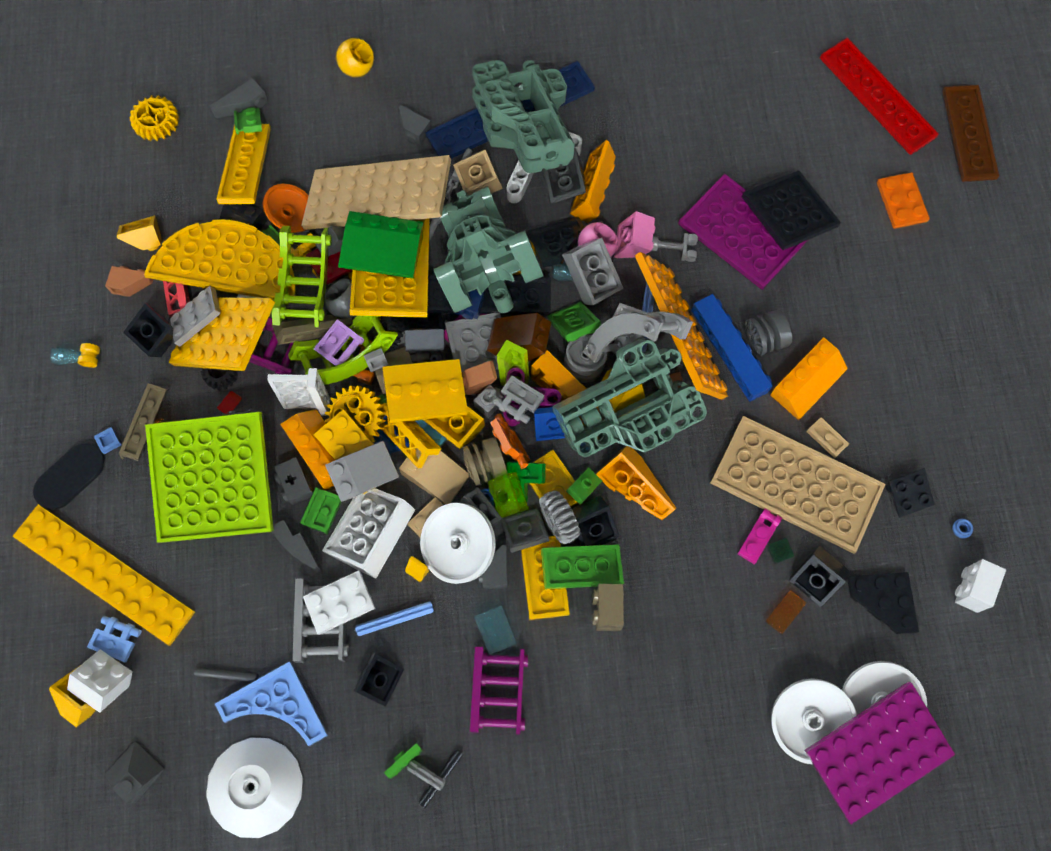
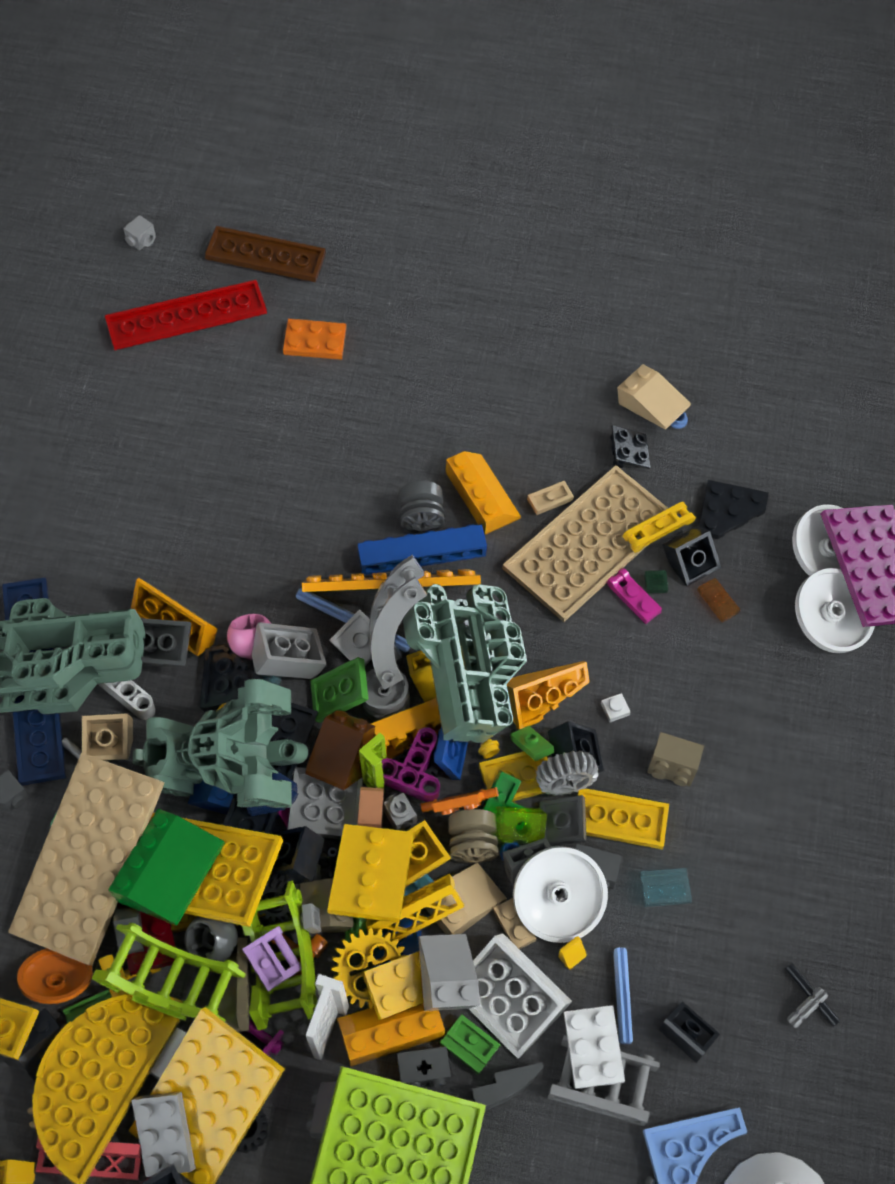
camera: 75 degrees left, 10 degrees down
(229, 402) = (289, 1128): red sticker -> none
(403, 760) = (785, 1028): bright green plate -> none
(479, 700) = (716, 918): magenta fence -> none
(523, 395) = (417, 764): light grey plate -> none
(569, 454) = (489, 748): none -> yellow plate
(581, 566) = (622, 774): bright green plate -> none
(635, 235) = (256, 595): bright pink slope -> none
(645, 548) = (615, 707): none -> white plate
(688, 239) = (270, 581): light grey bar -> none
(736, 234) = (290, 493): magenta plate -> none
(790, 210) = (288, 438): black plate -> none
(835, 537) = (658, 526): none -> yellow plate
(941, 32) = (139, 233): none -> light grey brick
(973, 497) = (652, 397): none -> tan slope
(979, 585) = (741, 424): white brick -> none

